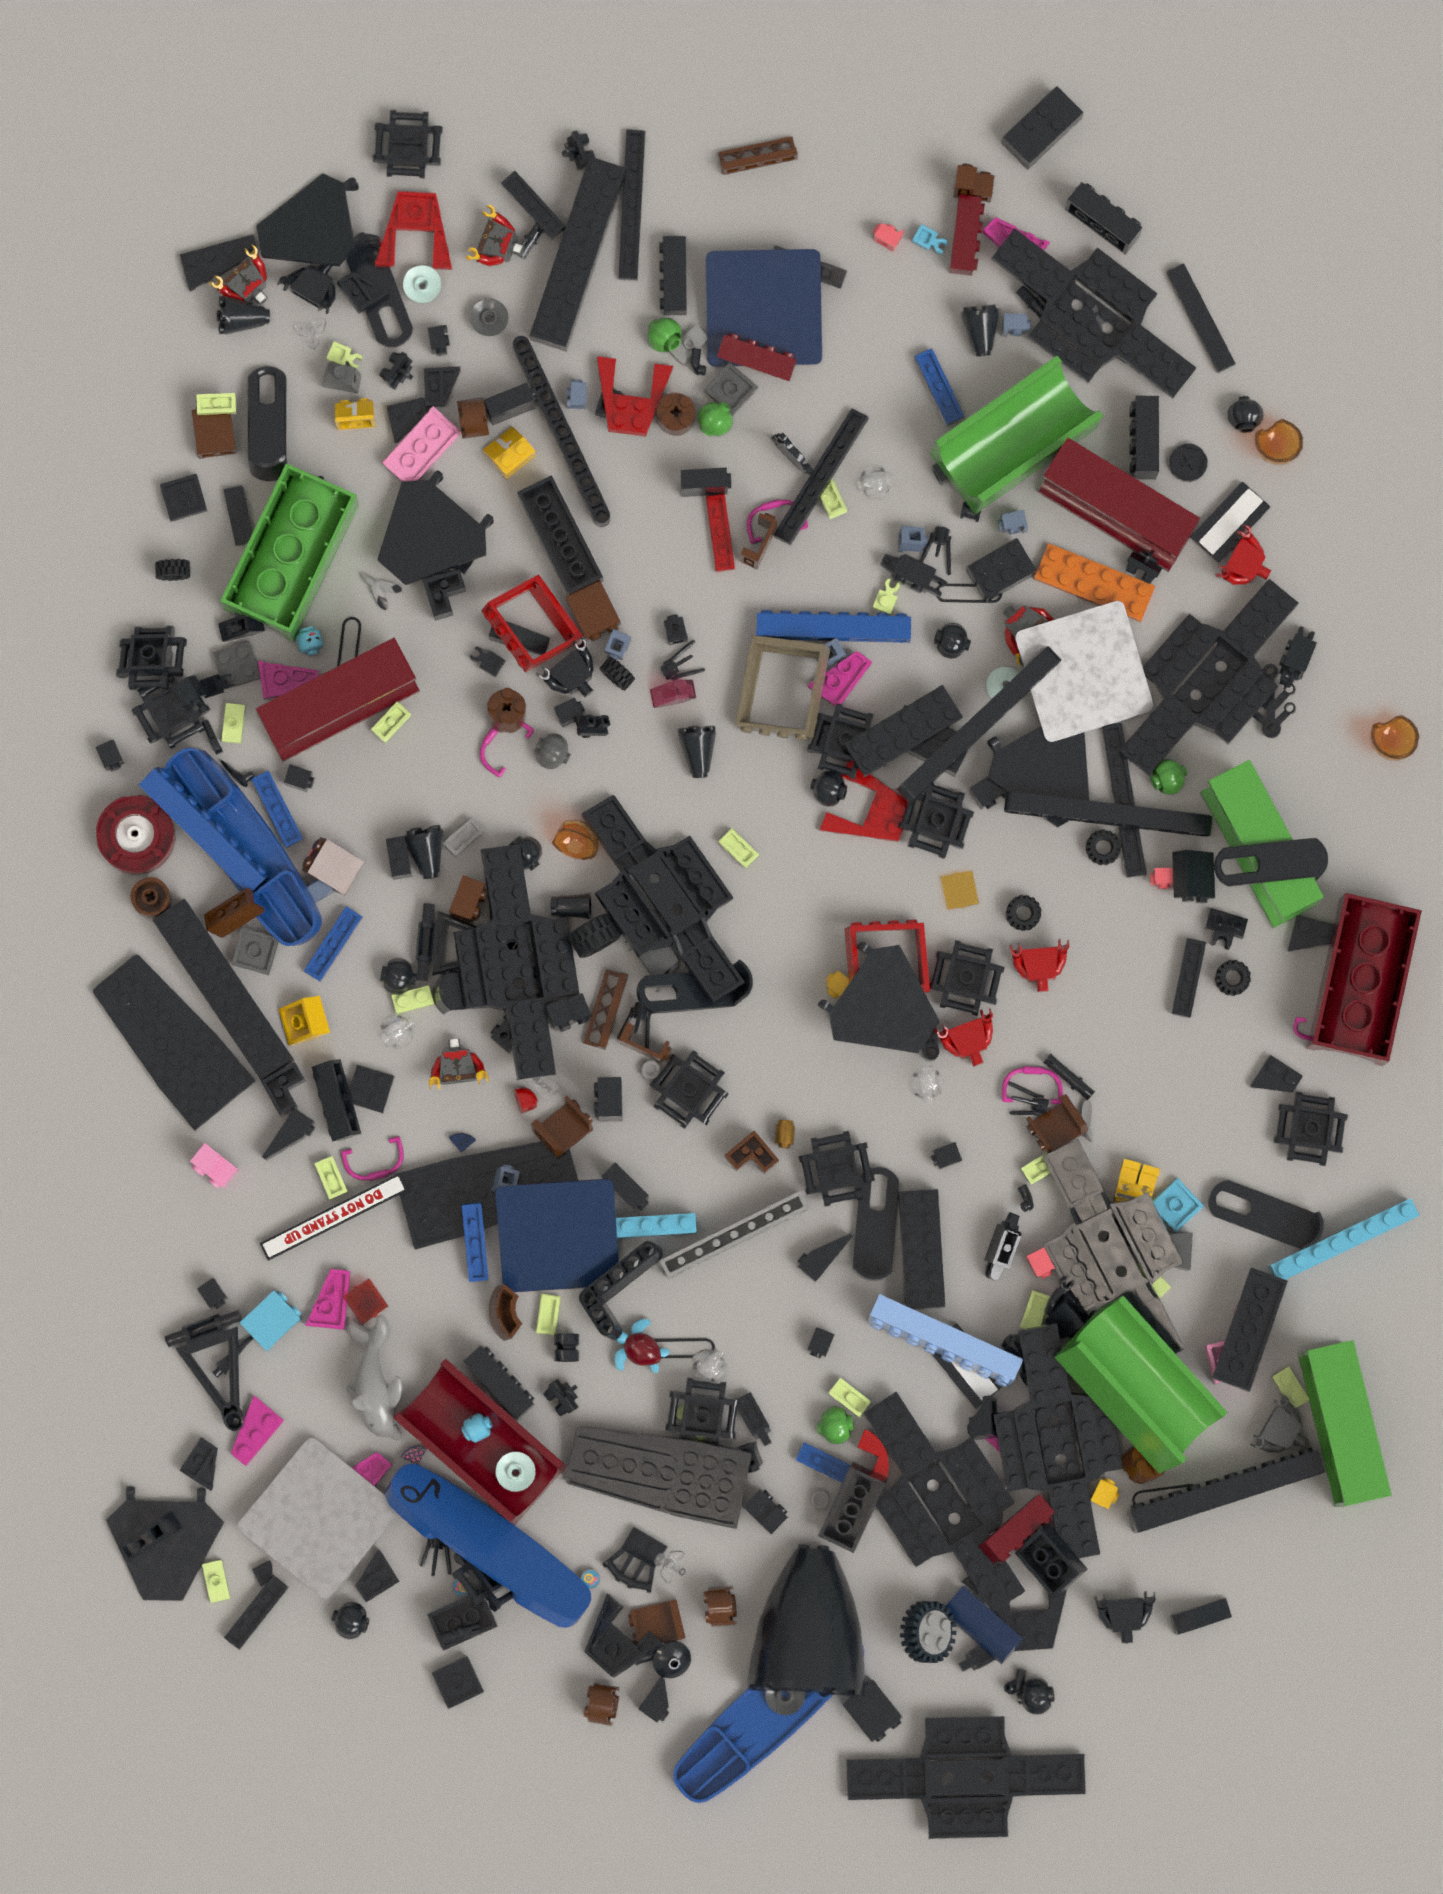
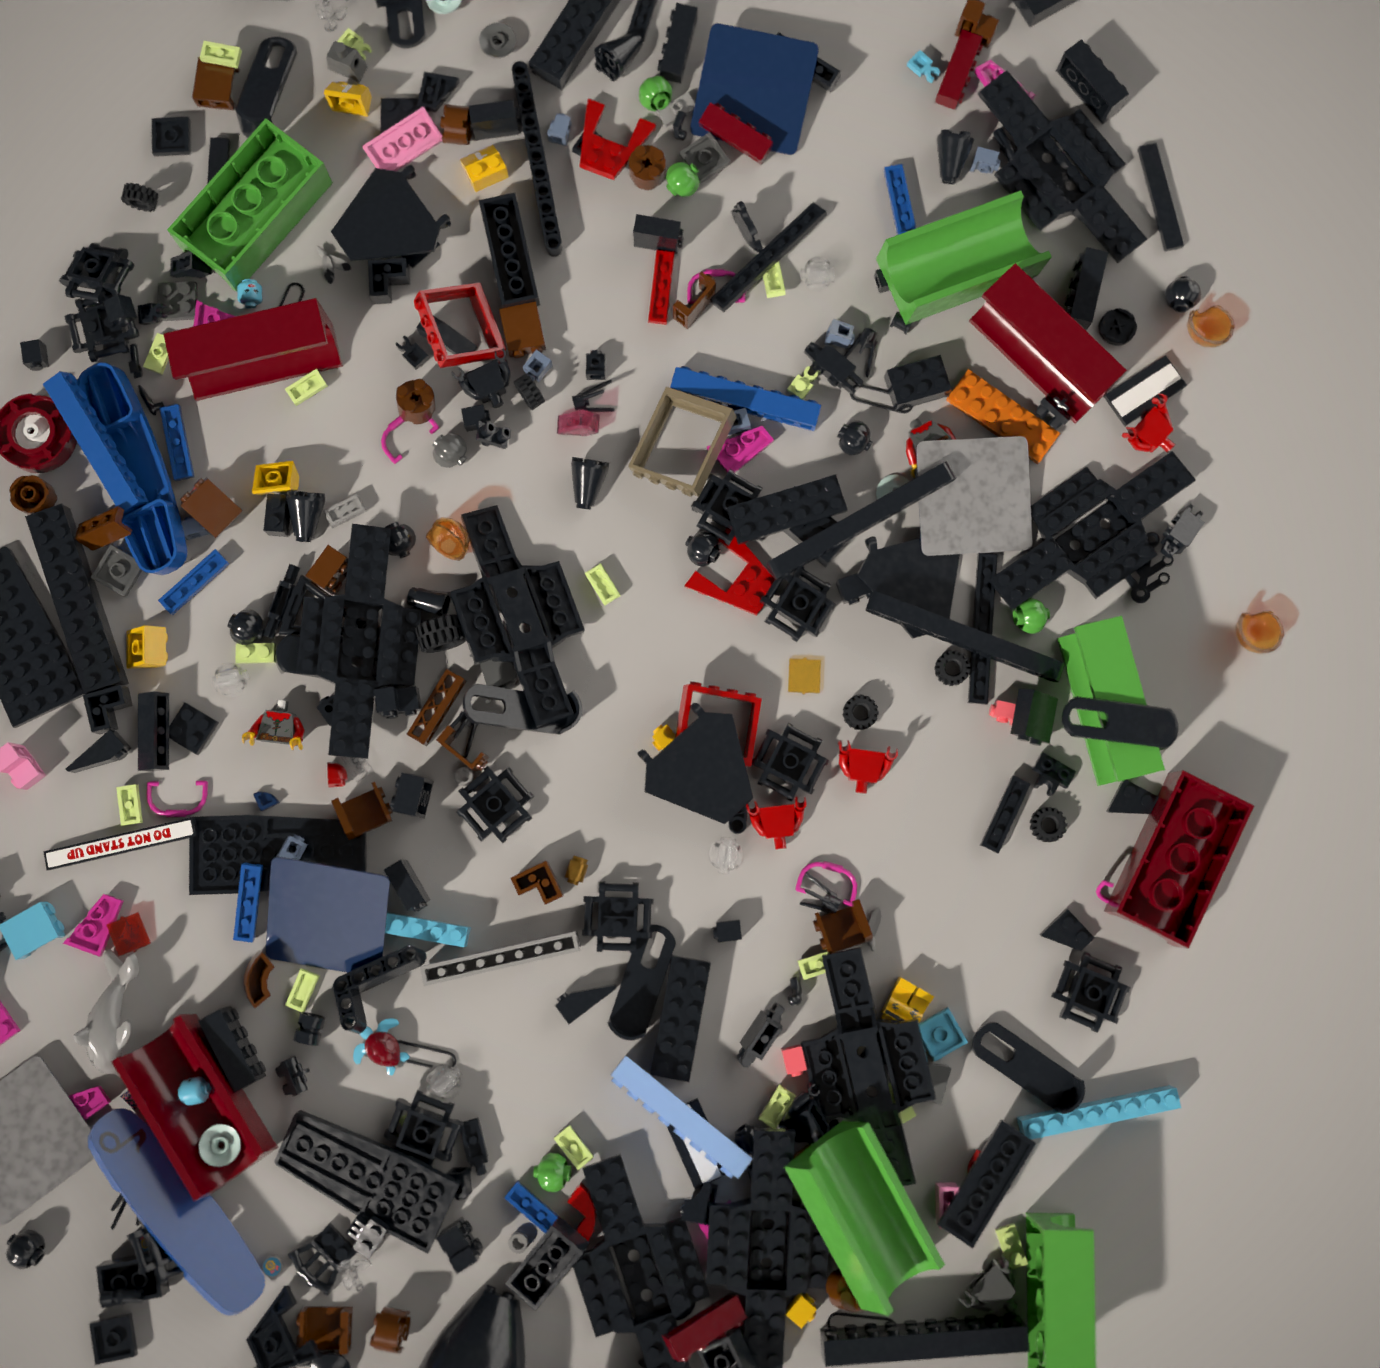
camera: 15 degrees right, 0 degrees up
(299, 778) = (204, 418): black brick -> none
(376, 1578) = (63, 1212): black wing -> none
(388, 821) = (275, 478): none -> yellow slope
(399, 370) = (400, 68): black hips -> none
(438, 340) = (445, 49): black brick -> none
(616, 304) = (617, 54): none -> black cone
(674, 1526) = (367, 1234): none -> hinge
(820, 1343) = (558, 1086): black brick -> none
(887, 236) = (885, 54): coral brick -> none
(1013, 522) = (939, 341): sand blue brick -> none
(1069, 1077) = (865, 881): black pin -> none

